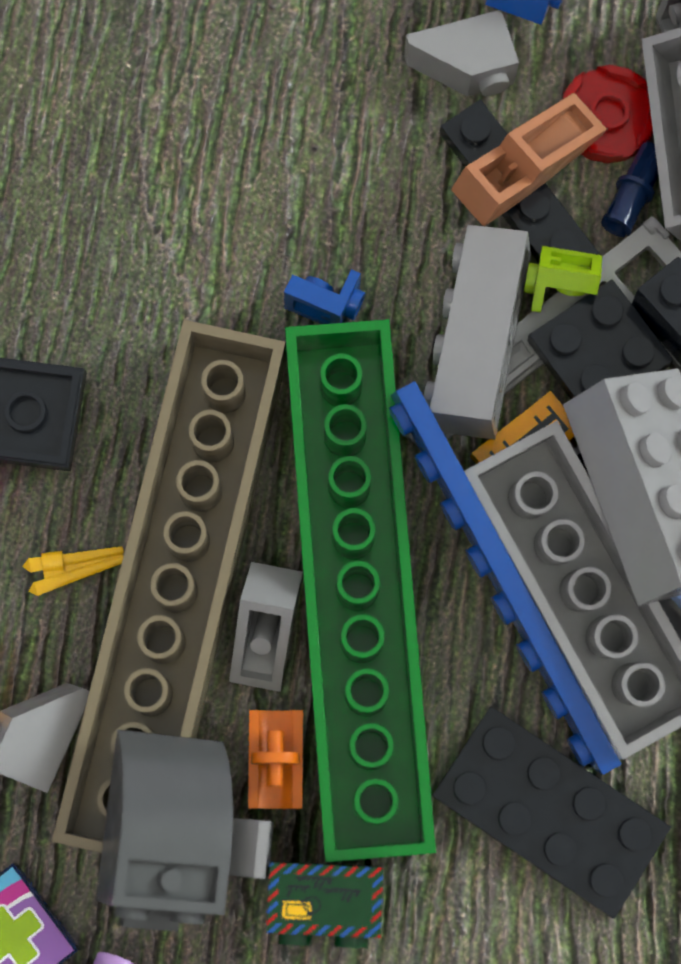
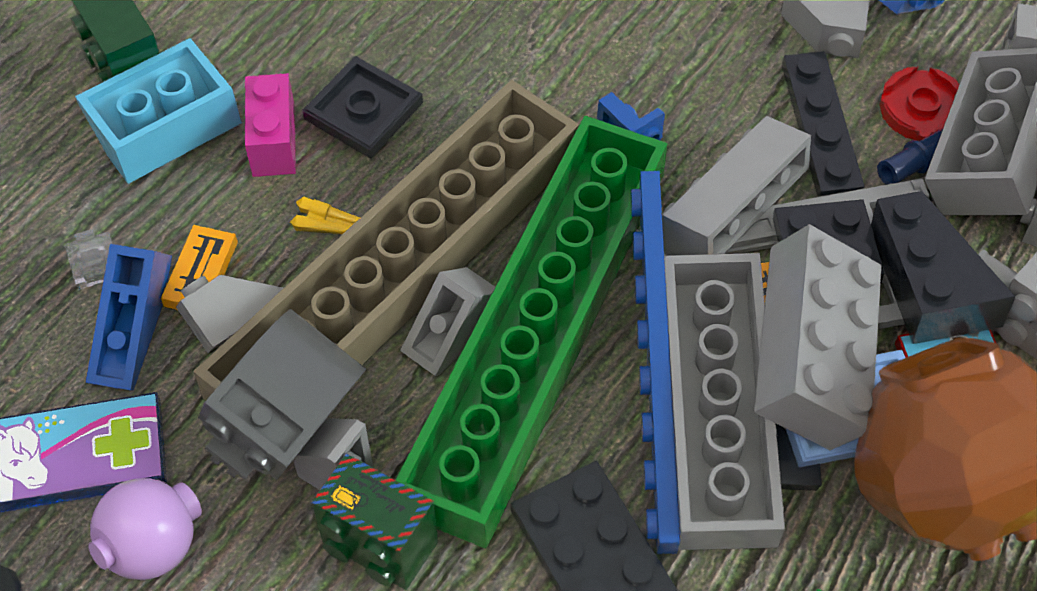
camera: 30 degrees right, 20 degrees down
(275, 759) = (401, 410): orange hips -> none
(527, 158) = (837, 92): nougat slope -> none
(566, 270) = (830, 181): lime bracket -> none

